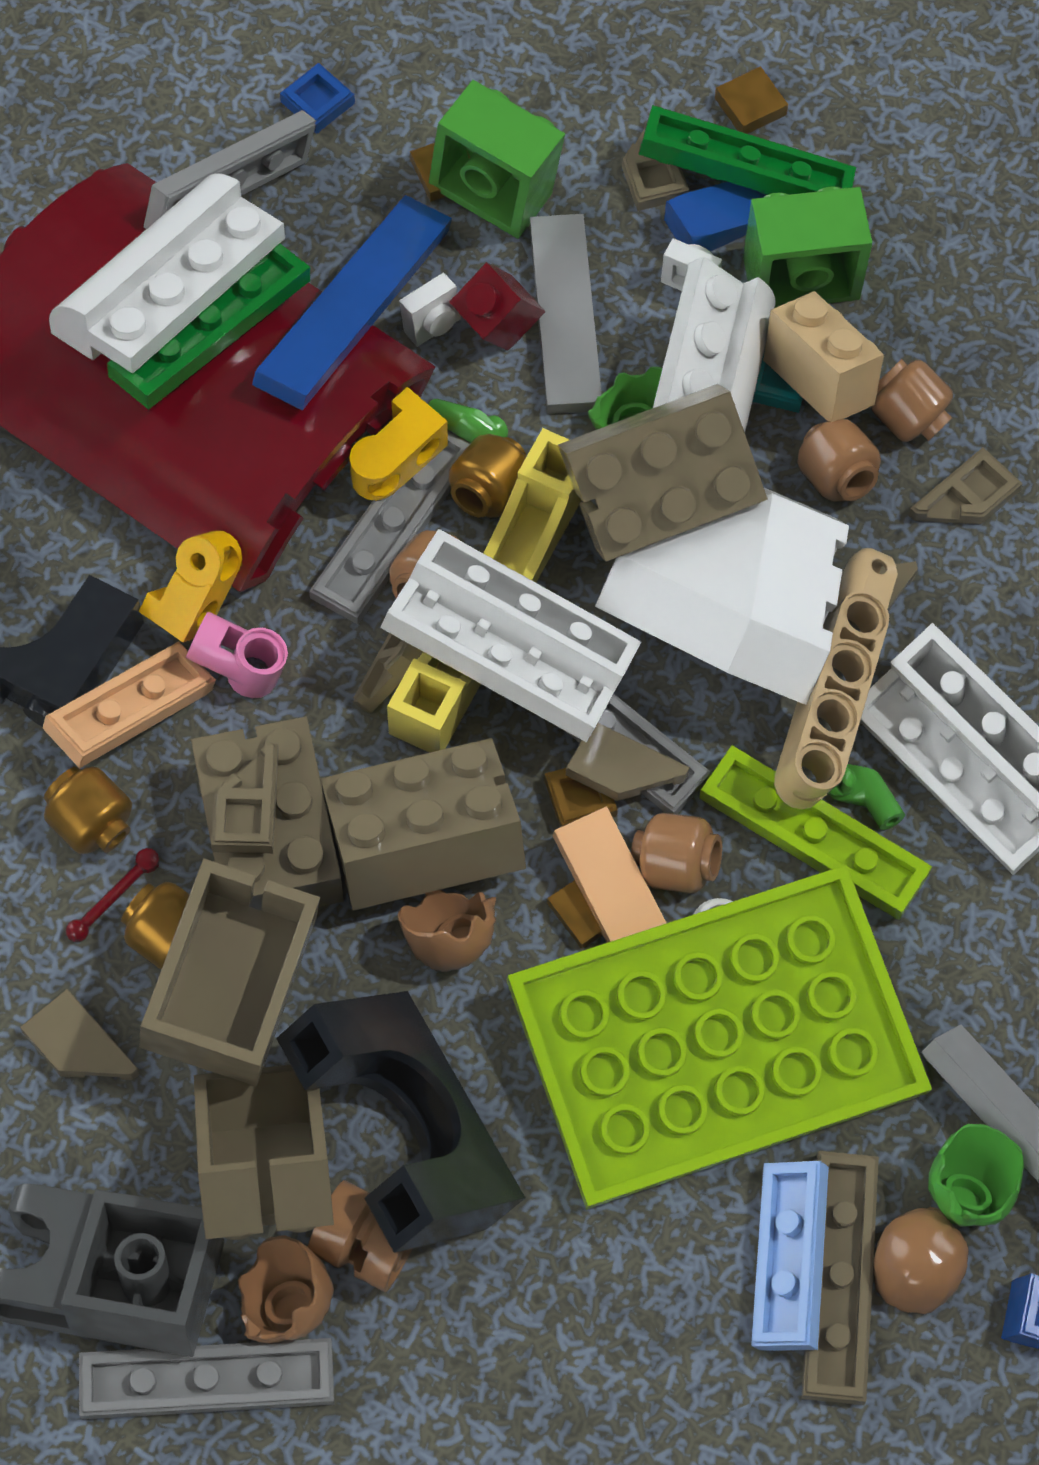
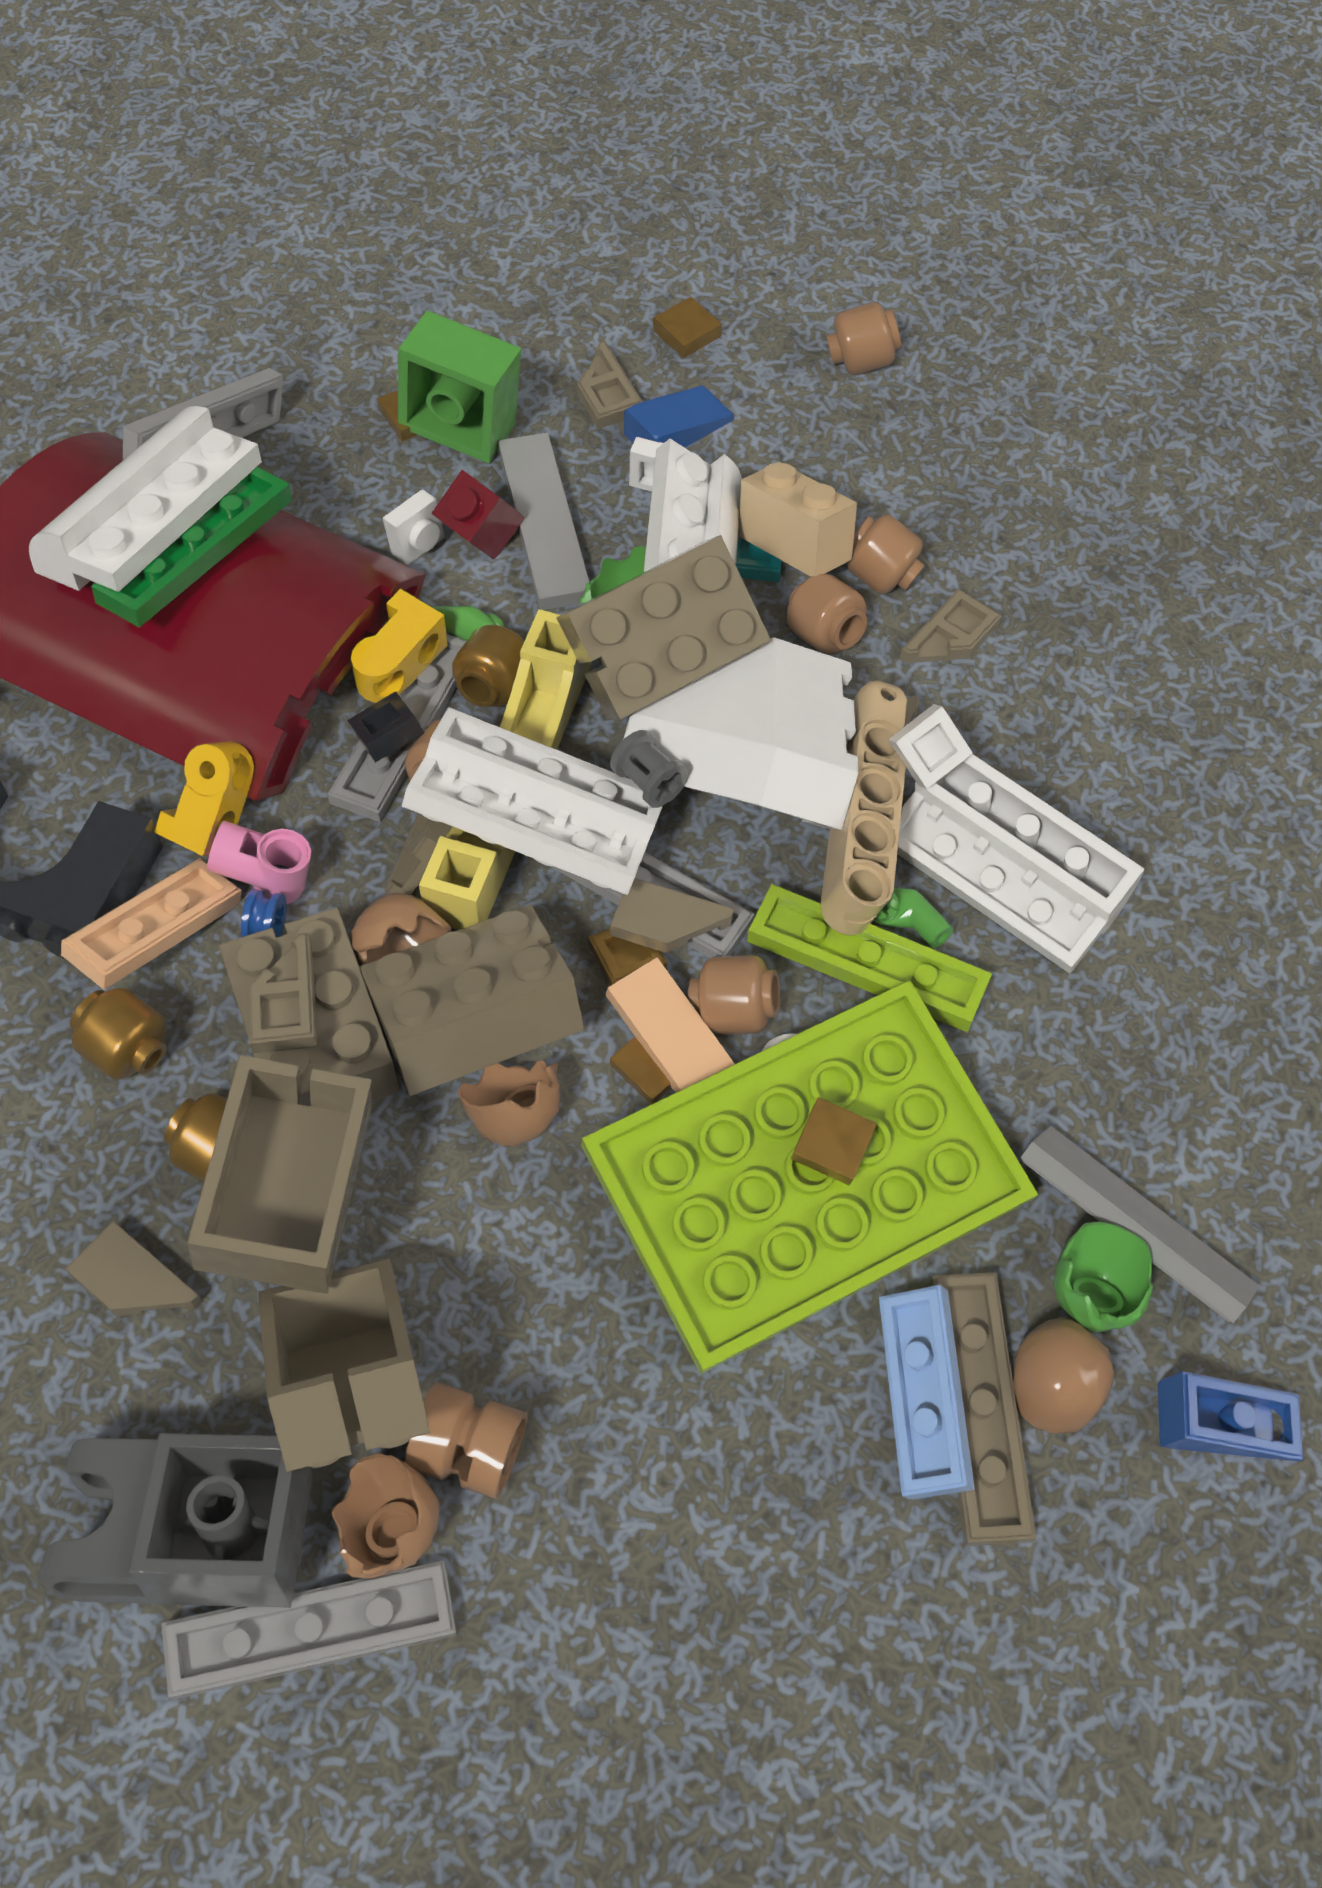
camera: 10 degrees left, 5 degrees down
(146, 862) = (187, 1079): dark red hinge -> none
(234, 710) = (263, 913): none -> blue bush
(319, 96) = (287, 359): blue tile -> none
(351, 303) = (333, 524): blue tile -> none
(359, 741) = (393, 926): none -> medium nougat hair
(374, 531) = (386, 727): none -> black plate
(389, 1048) = (467, 1233): black arch -> none
(625, 617) = (649, 768): none -> dark grey bush
(738, 156) = (693, 370): green plate -> none
(743, 1011) = (833, 1141): none -> pearl gold tile
(809, 244) = (766, 421): bright green brick -> none
(908, 631) = (930, 746): none -> white plate
(938, 142) = (864, 338): none -> medium nougat head

